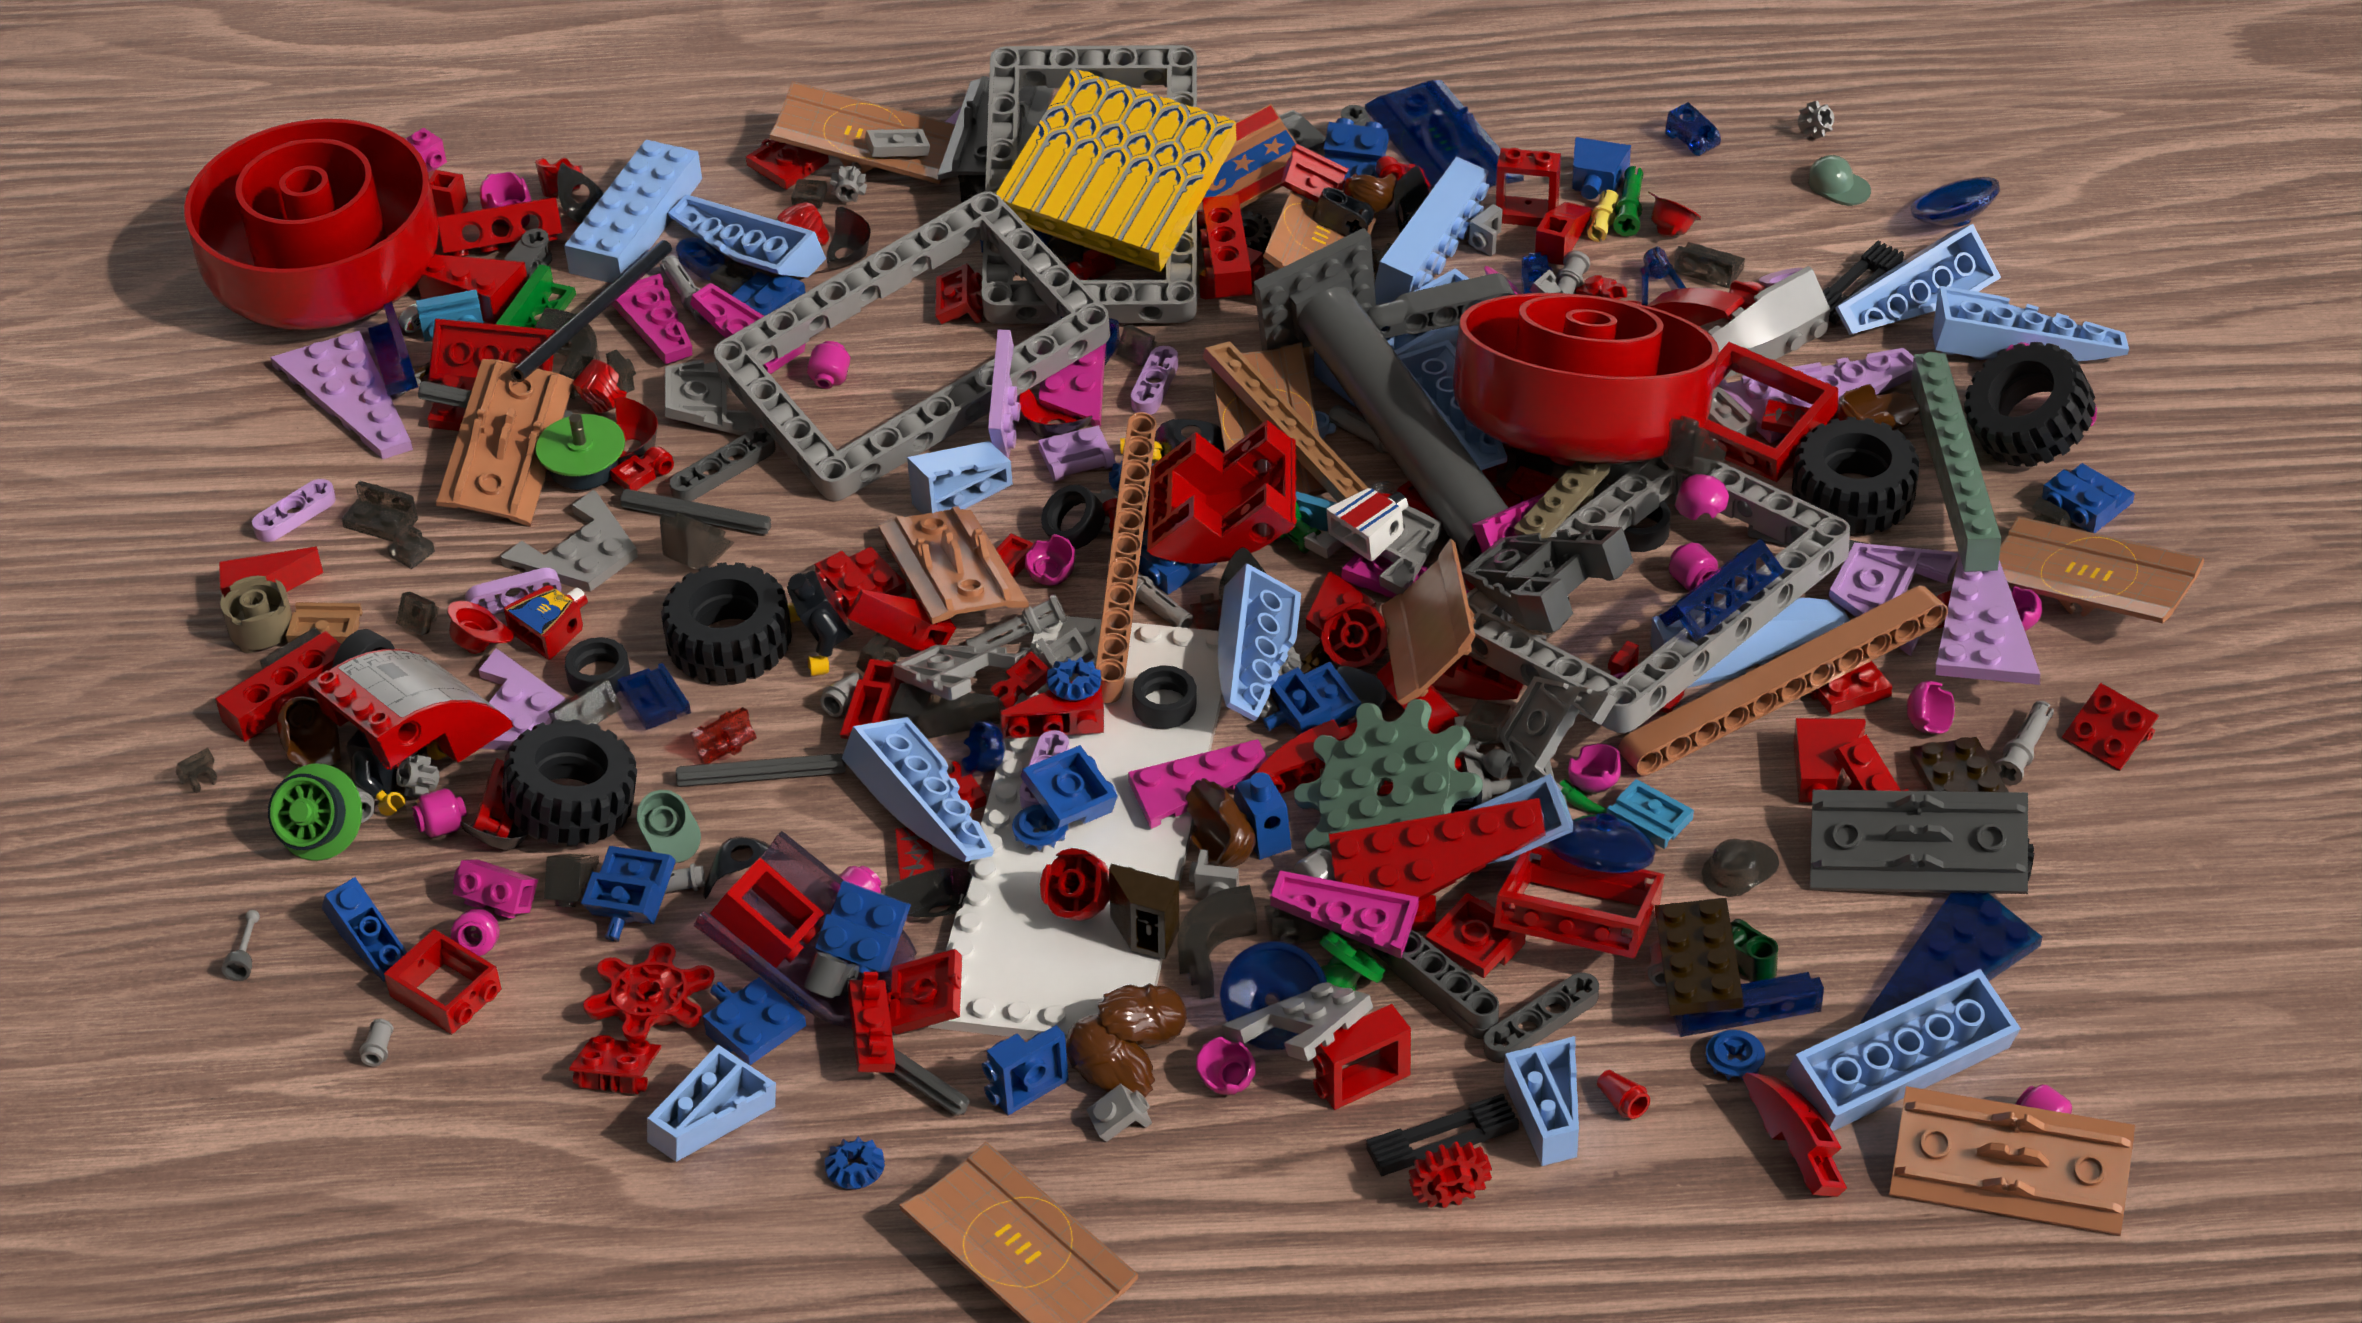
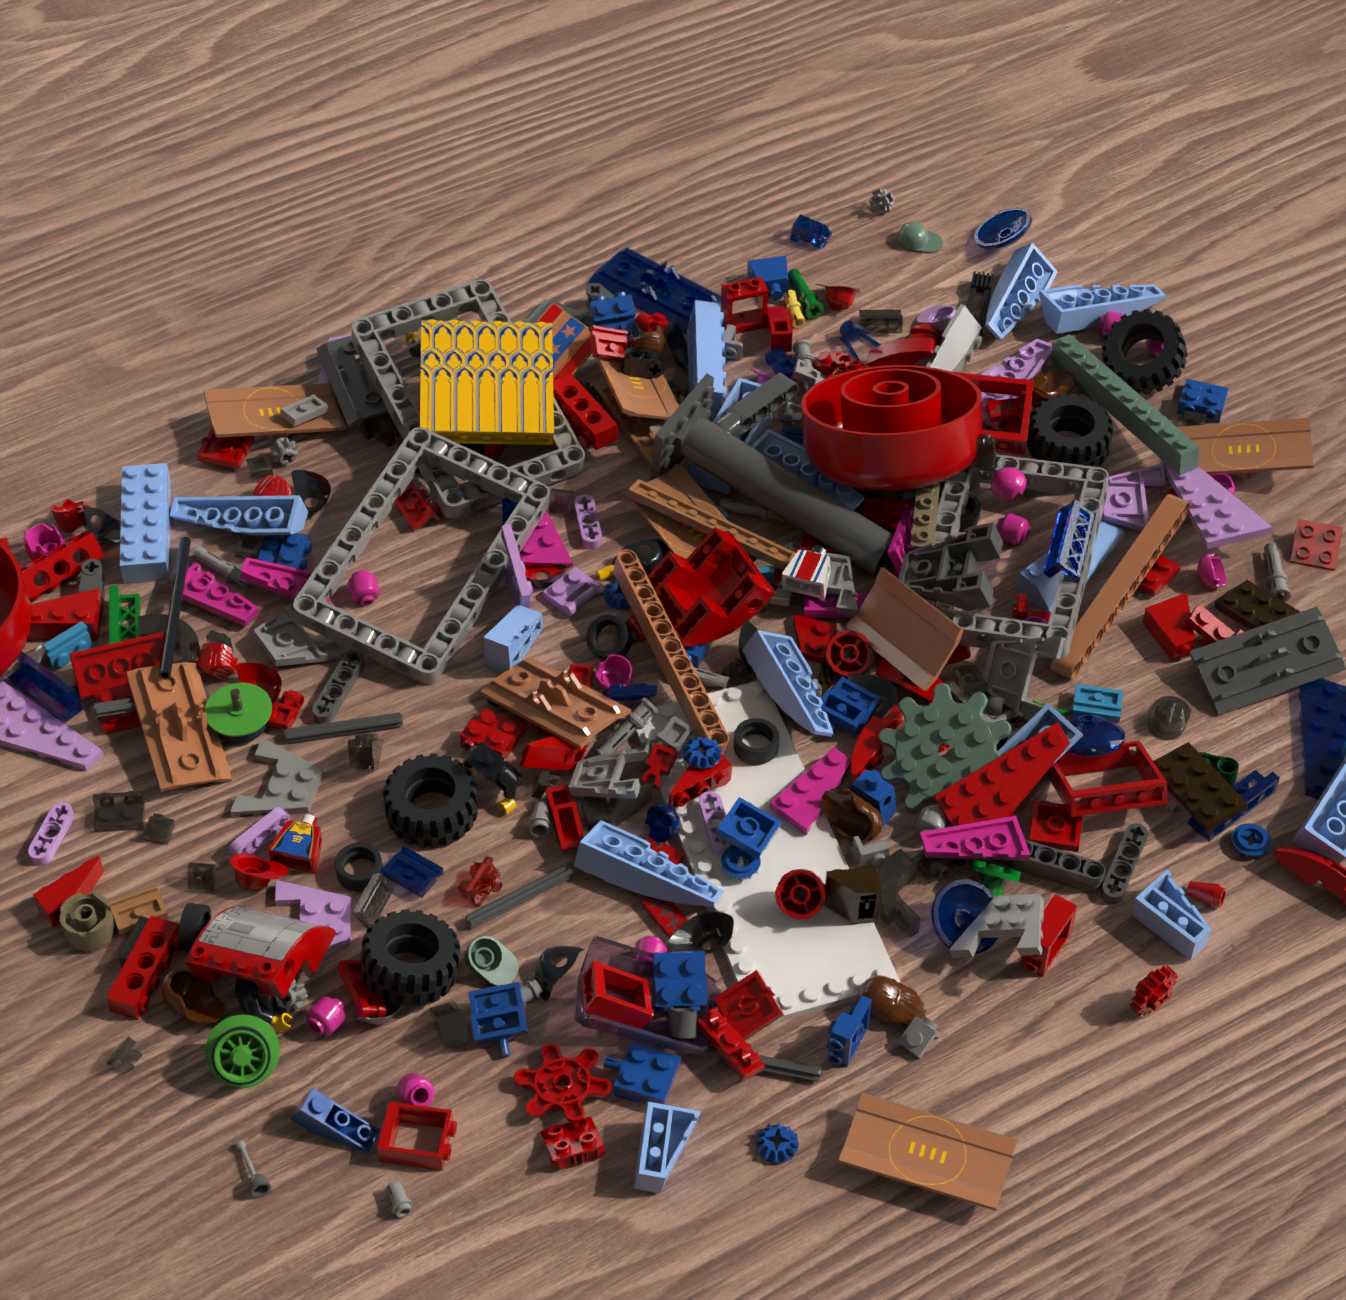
camera: 30 degrees left, 5 degrees up
(494, 886) = (404, 1053): dark pink brick -> none
(699, 257) = (216, 540): clear blue plate -> none
(1041, 584) = (635, 692): none -> clear blue plate
(1143, 1014) = (899, 962): reddish brown hair -> none
(1225, 1066) = (967, 976): dark pink hair -> none
(1491, 1117) = (1142, 942): black container -> none
(1595, 768) = (1048, 685): dark pink hair -> none

